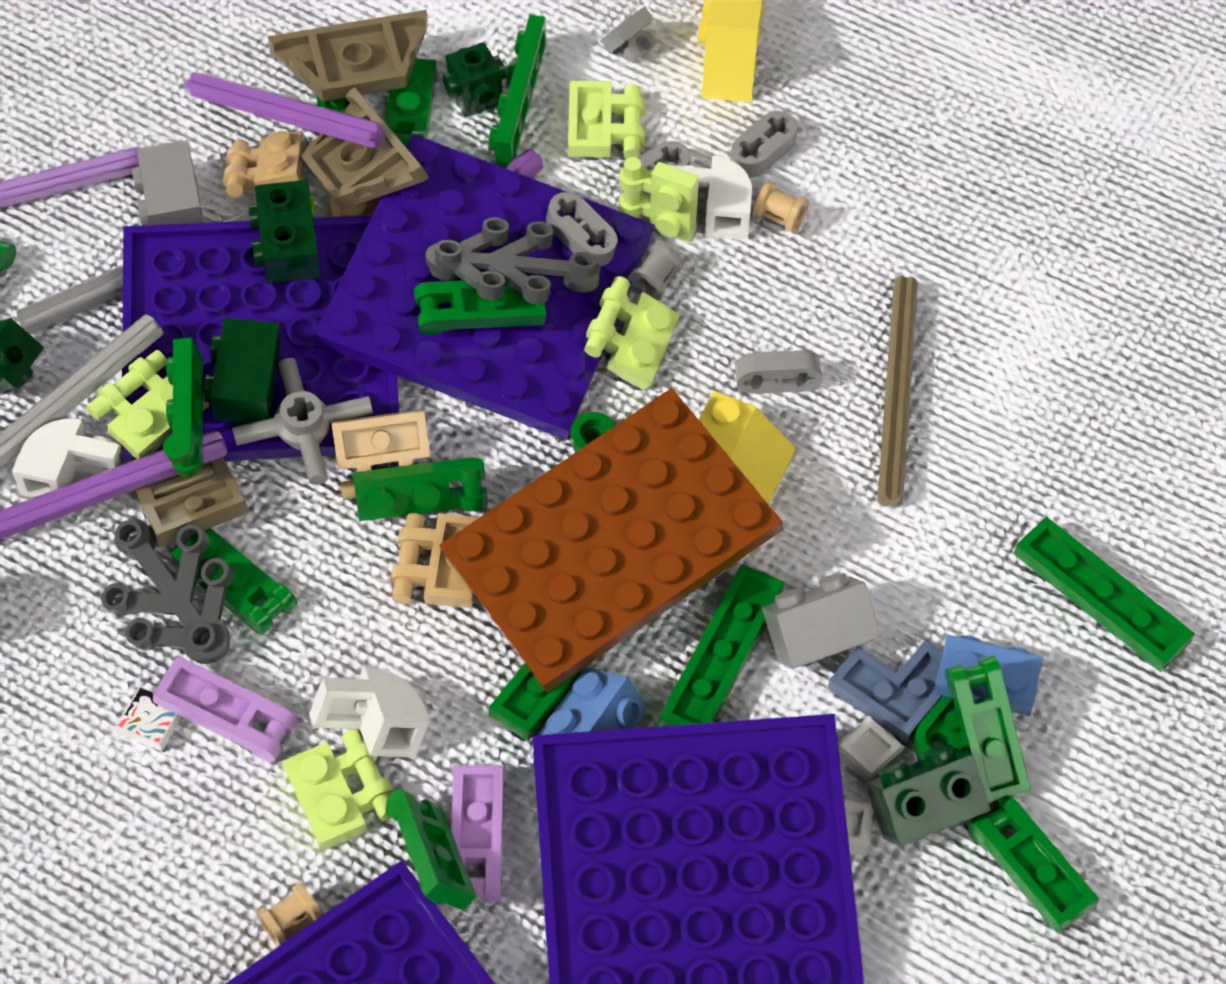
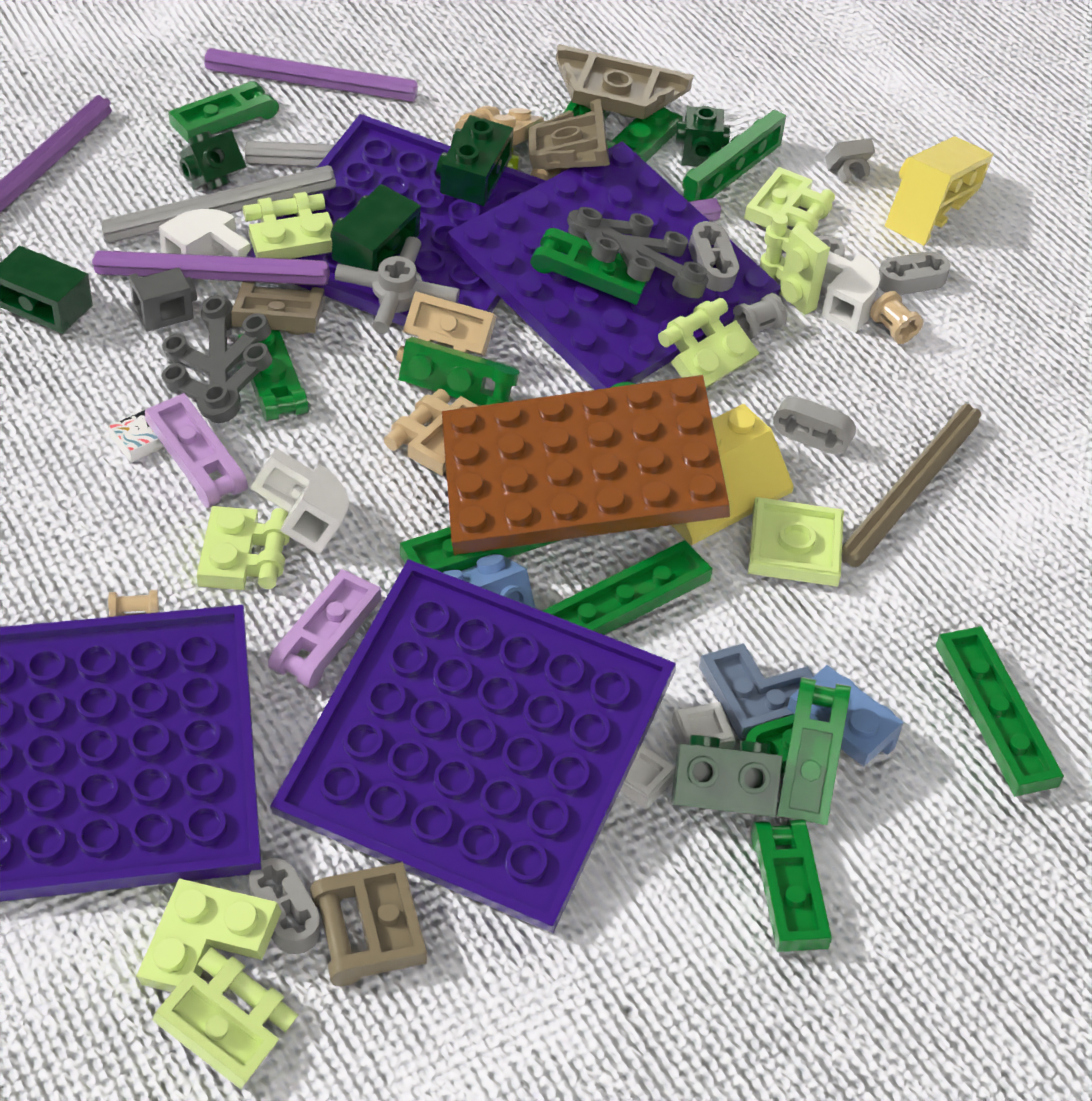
camera: 25 degrees right, 10 degrees down
(66, 550) = (162, 298): none -> dark grey brick
(168, 185) = (419, 106): light grey brick -> none
(185, 410) = (309, 230): green plate -> none
(286, 110) = (538, 93): medium lavender axle -> none
(432, 849) = (274, 613): green plate -> none
(820, 620) = (723, 607): light grey brick -> none
(835, 509) = (796, 541): none -> yellowish green plate

